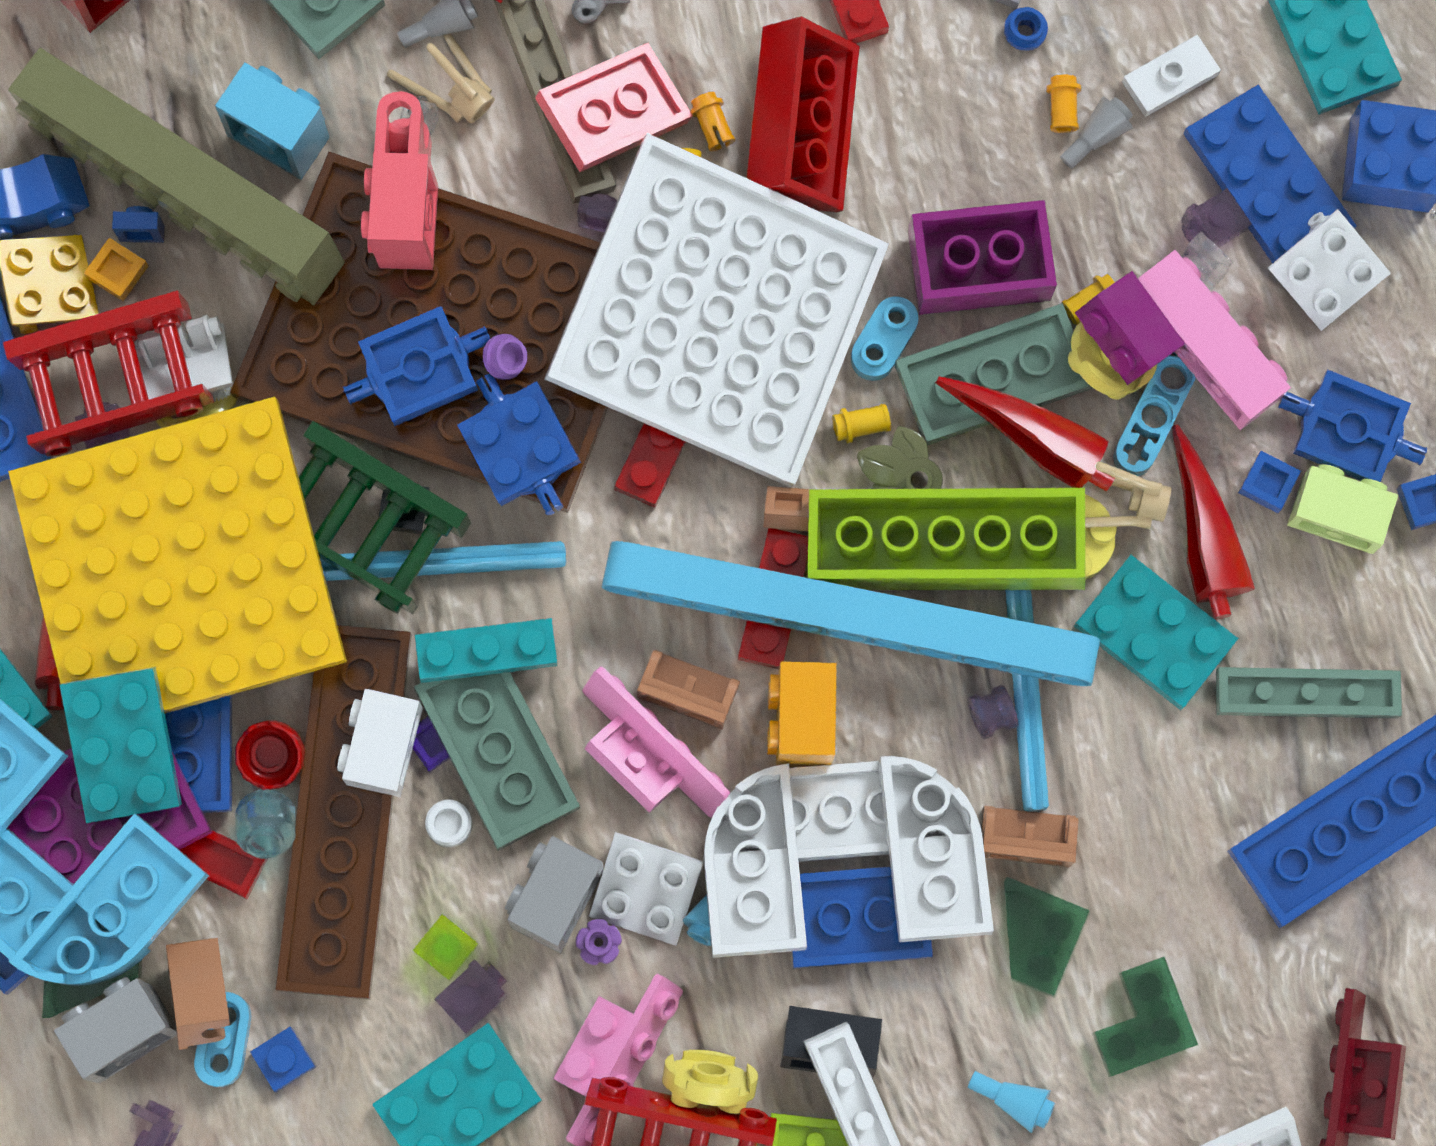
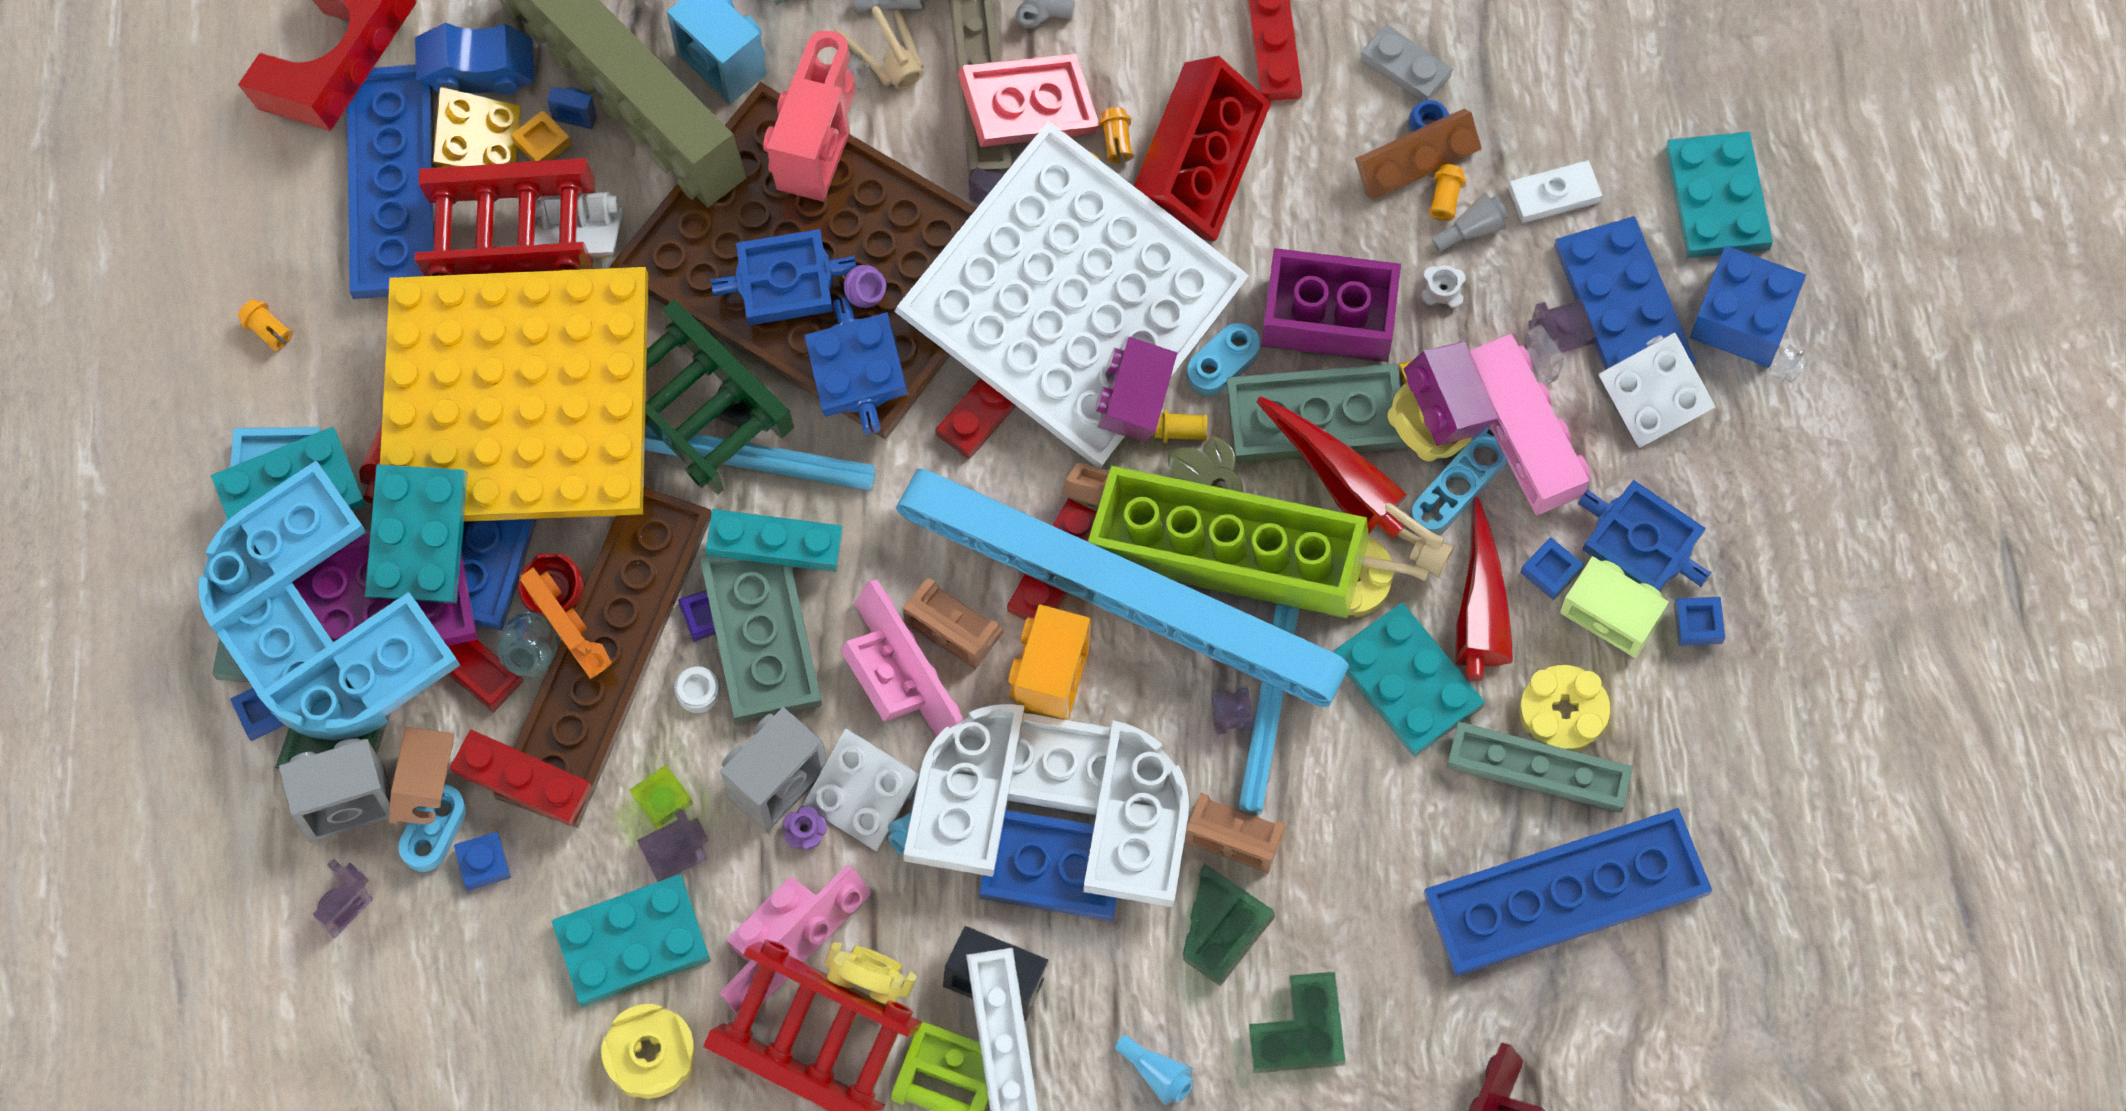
camera: 20 degrees right, 10 degrees down
(299, 967) = (520, 777): none -> red plate
(303, 798) = (567, 624): none -> orange hinge
(380, 742) = (653, 595): white brick -> none
(811, 399) = (1136, 389): none -> magenta brick
(1025, 69) = (1418, 153): none -> dark orange plate
(1088, 194) = (1446, 276): none -> white plate
(1331, 603) = (1578, 687): none -> light yellow plate

